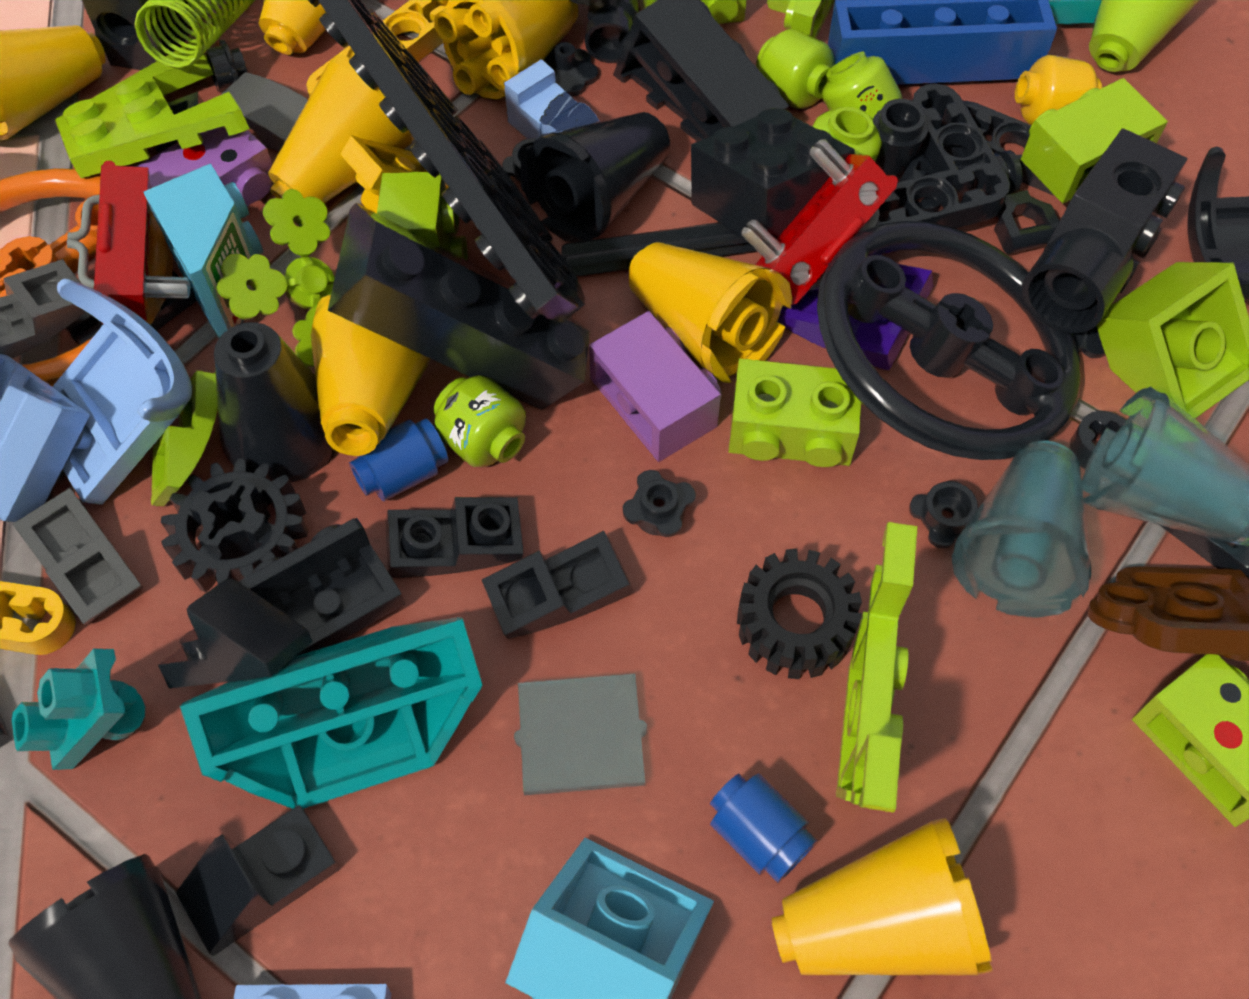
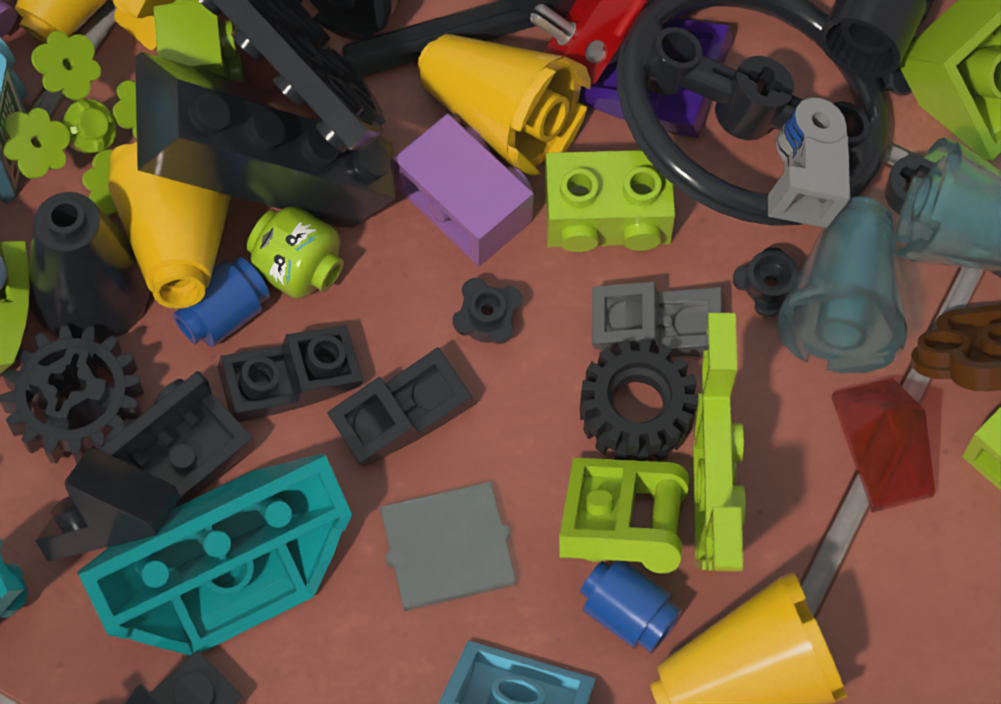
camera: 10 degrees left, 5 degrees up
(744, 722) = (601, 512): none -> lime plate
(812, 524) = (665, 317): none -> dark grey slope
(1009, 401) = (815, 165): none -> light grey leg
(1055, 693) = (887, 442): none -> clear red slope

